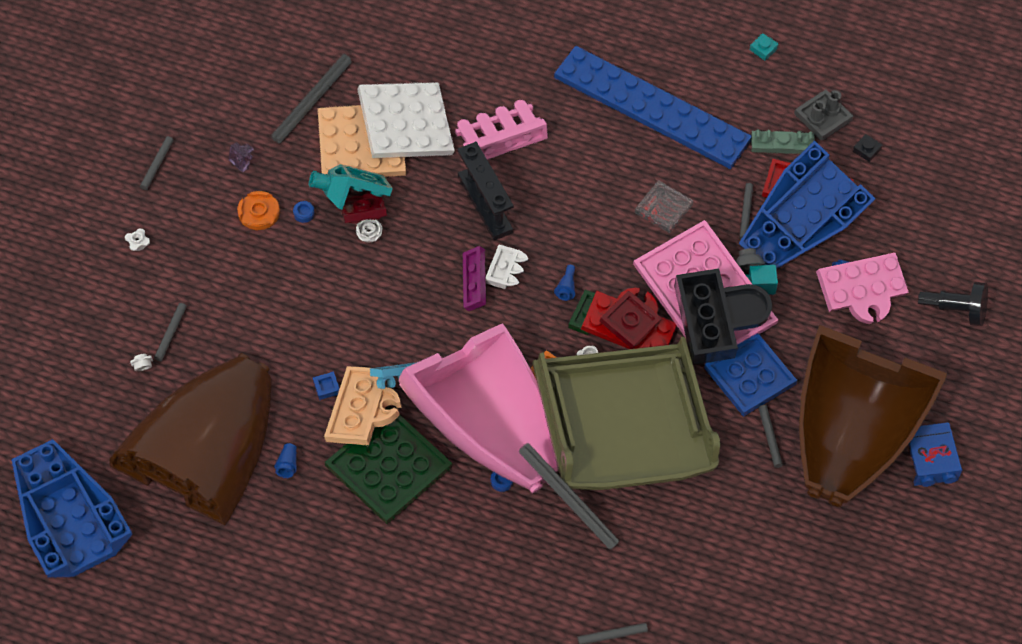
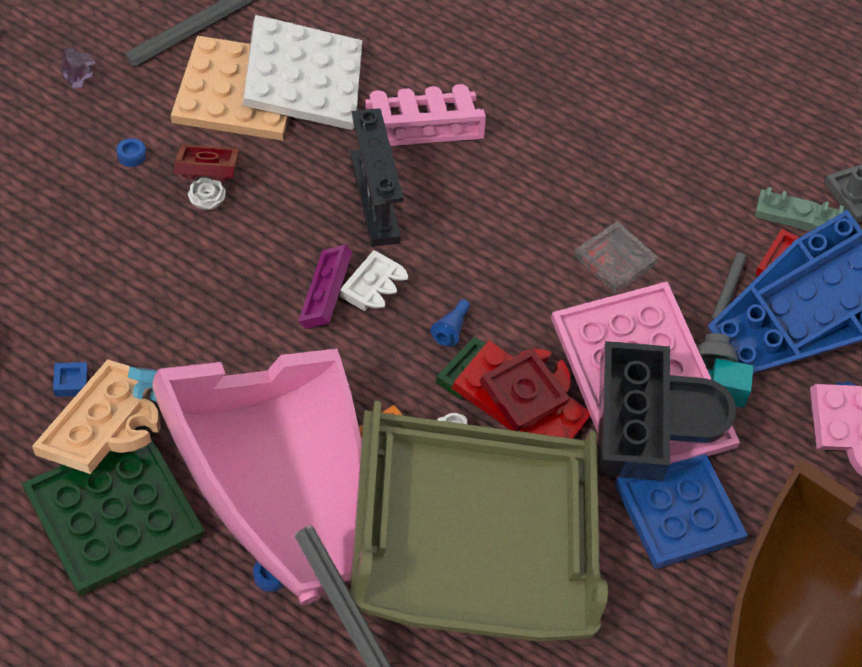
camera: 10 degrees right, 5 degrees down
(258, 210) = (73, 137): orange tile -> none
(341, 177) = (180, 119): teal plate -> none
(653, 107) = (638, 134): blue plate -> none
(763, 46) = (801, 94): teal plate -> none
(770, 435) = (688, 609): dark grey bar -> none

